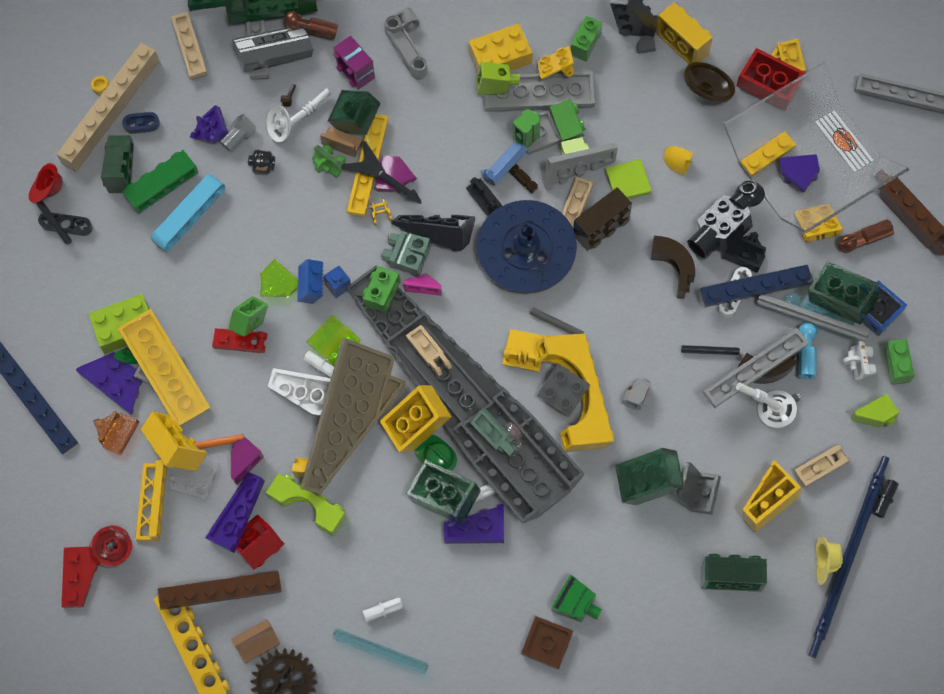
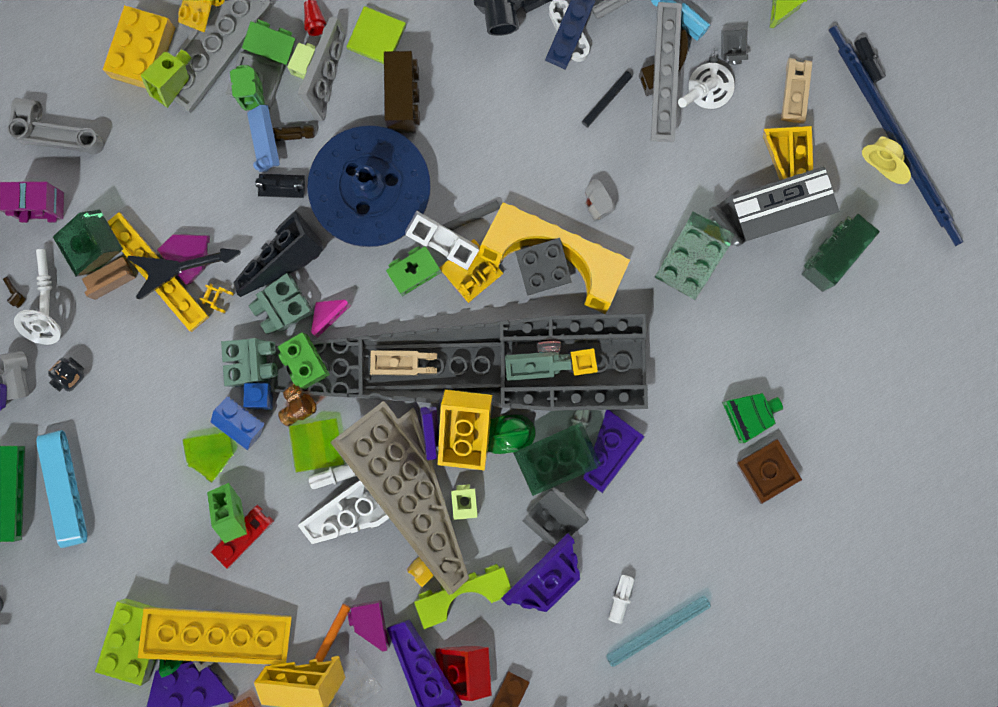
camera: 55 degrees left, 15 degrees up
(325, 161) = (119, 310): bright green hips -> none
(351, 310) = (300, 406): none -> clear orange piece
(354, 258) = (251, 361): none -> sand green hips
(358, 548) = (547, 579): none -> dark purple wing
(367, 451) = (459, 510): none -> yellowish green brick
(396, 397) = (430, 431): none -> dark purple slope
(402, 523) = (555, 517): none -> dark grey bracket
(500, 321) = (426, 270): none -> bright green brick
(521, 461) = (583, 362): none -> yellow plate
(526, 303) = (442, 239): none -> white arch
(577, 199) = (358, 100): tan tile -> none
(606, 135) = (313, 18): none -> red cone
(678, 256) = (496, 53): dark brown arch -> none
(733, 509) = (785, 203): none -> dark grey slope
(815, 402) = (733, 46): none -> dark grey bracket

